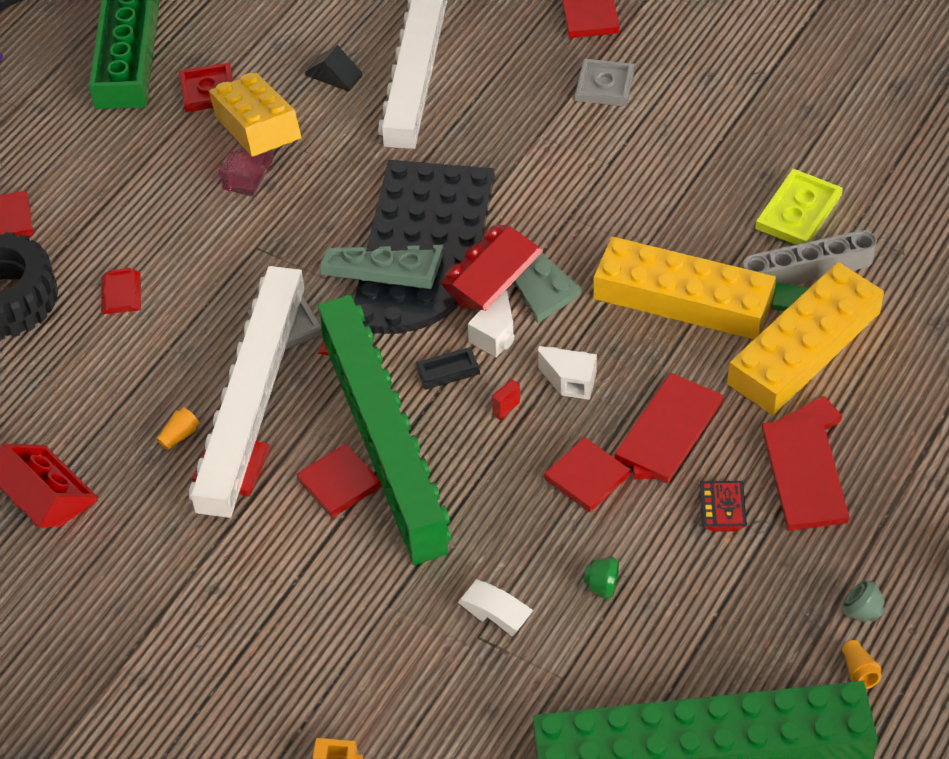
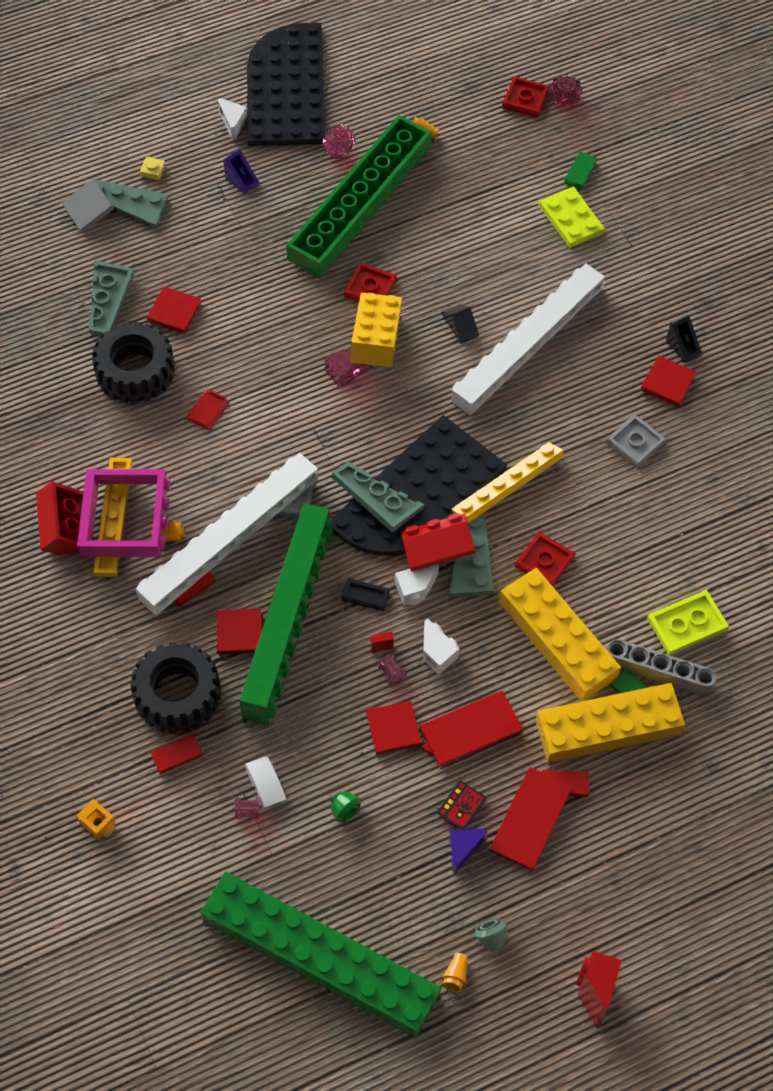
camera: 30 degrees right, 10 degrees up
(99, 450) = (113, 519): none -> yellow plate
(133, 470) = (95, 548): none -> dark pink window
(322, 603) = (169, 661): none -> black tyre
(370, 641) = (176, 754): none -> red tile
(497, 645) = (247, 808): none -> clear pink bush
(512, 178) = (509, 481): none -> yellow plate
(538, 419) = (391, 669): none -> clear pink bush
(600, 225) = (547, 557): none -> red tile
(757, 539) = (464, 844): none -> dark purple slope

